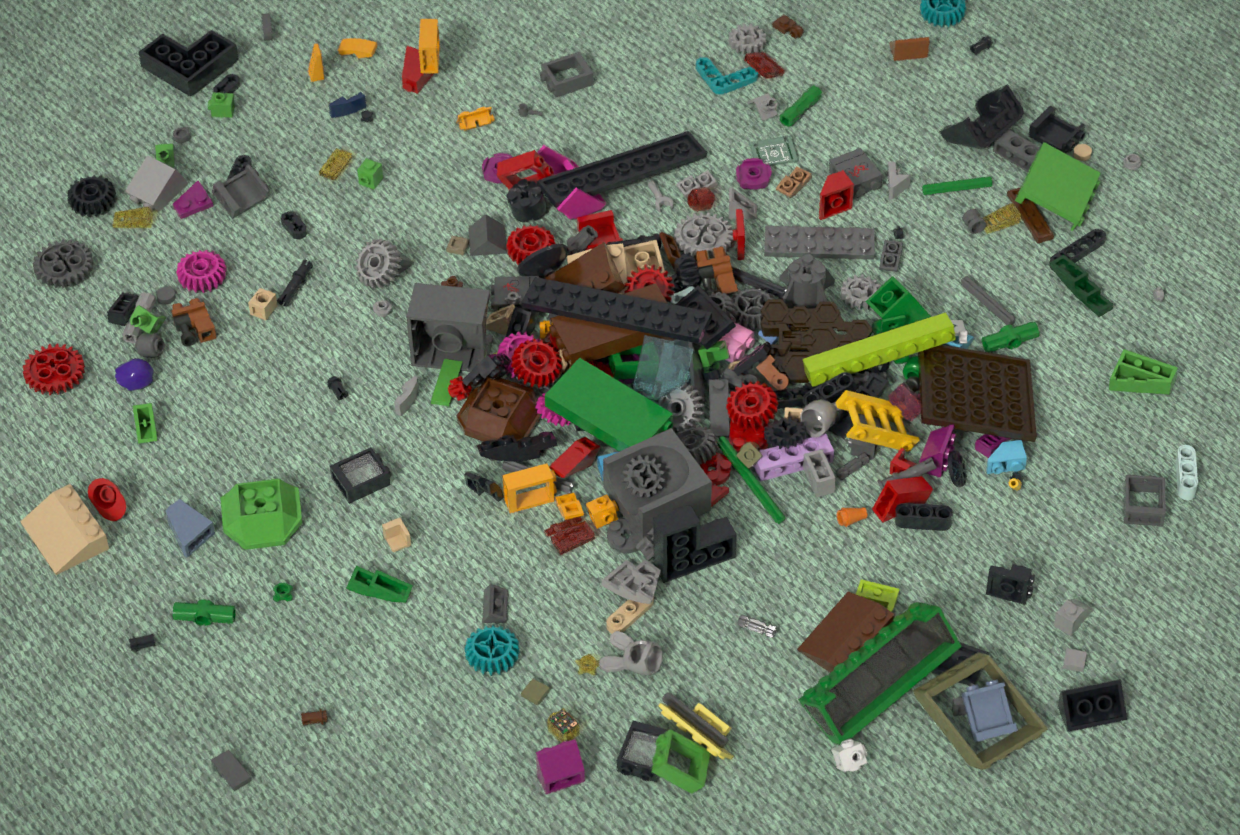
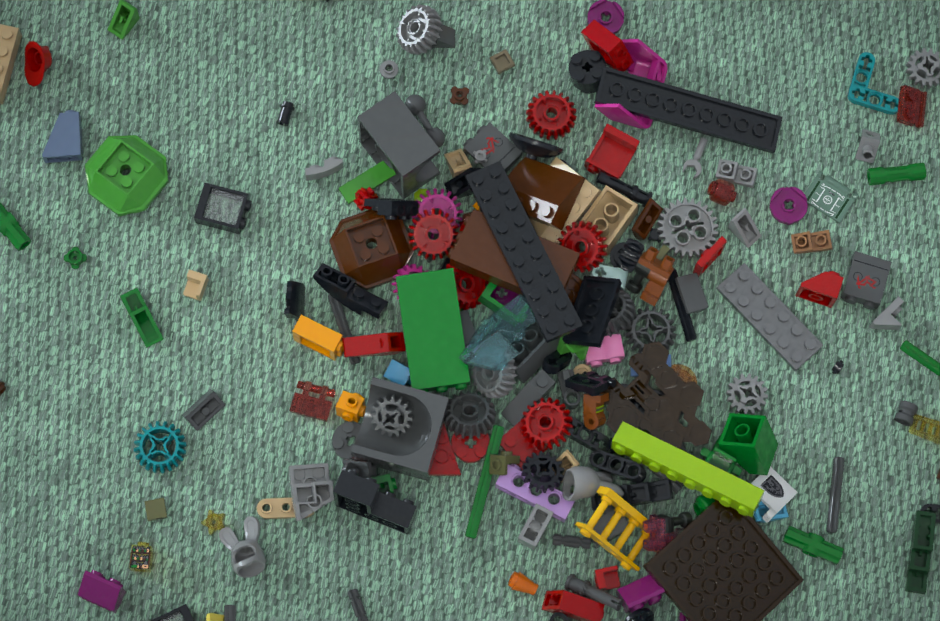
camera: 40 degrees right, 25 degrees up
(487, 237) = (529, 76): dark grey slope -> none
(569, 506) = (334, 379): light orange slope -> none
(581, 240) = (585, 148): dark grey piece -> none
(753, 266) = (691, 293): none -> dark grey slope
(806, 282) = (705, 353): dark grey brick -> none
(891, 255) = (808, 382): dark grey slope -> none

